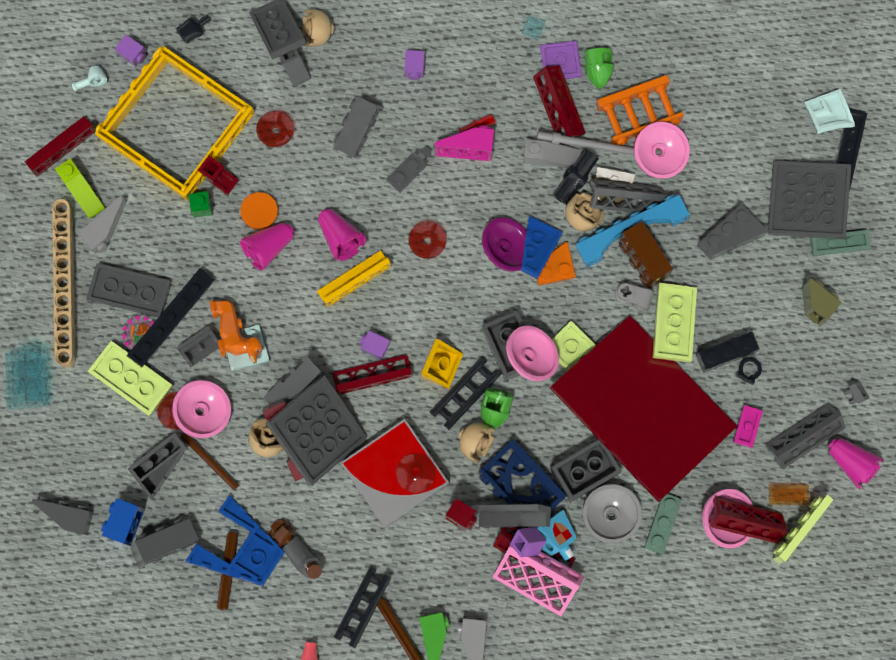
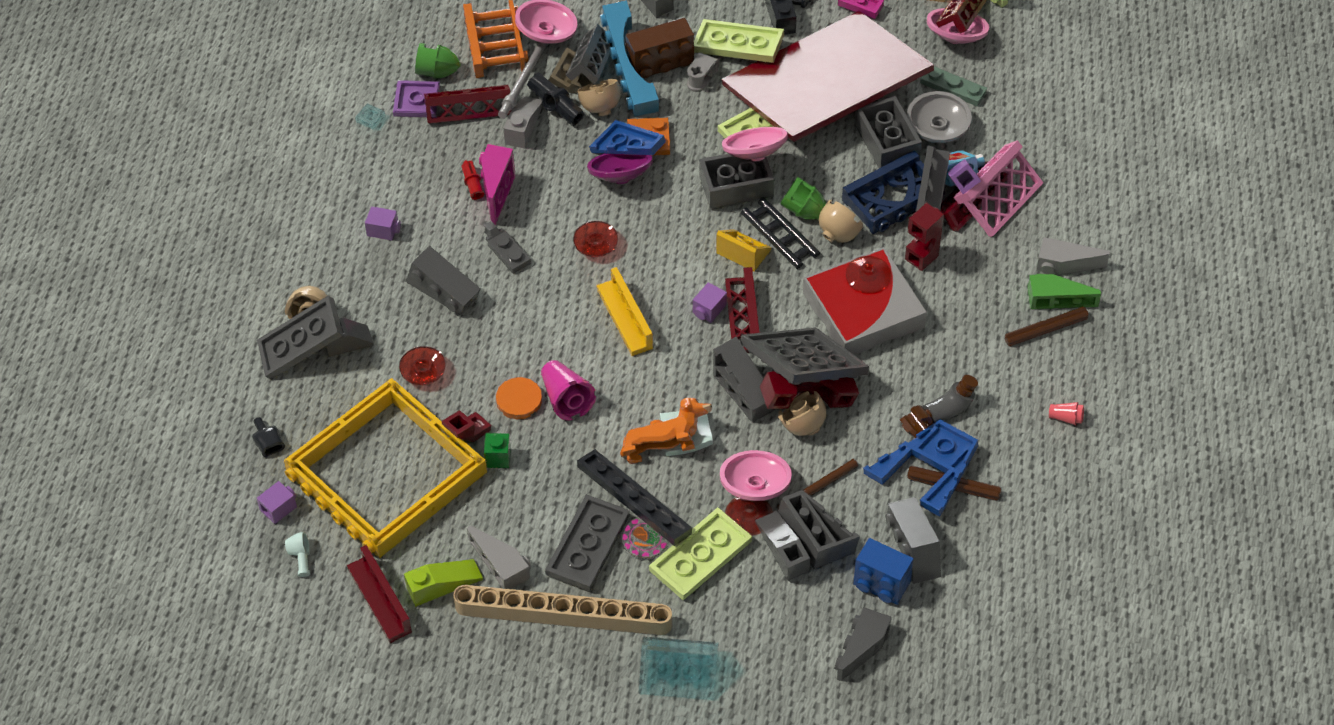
camera: 80 degrees left, 25 degrees down
(143, 440) = (784, 545): none -> dark grey slope
(198, 346) = (674, 476): dark grey hinge -> none
(340, 235) = (568, 316): dark pink cone -> none
(372, 601) = (1018, 368): black bar -> none

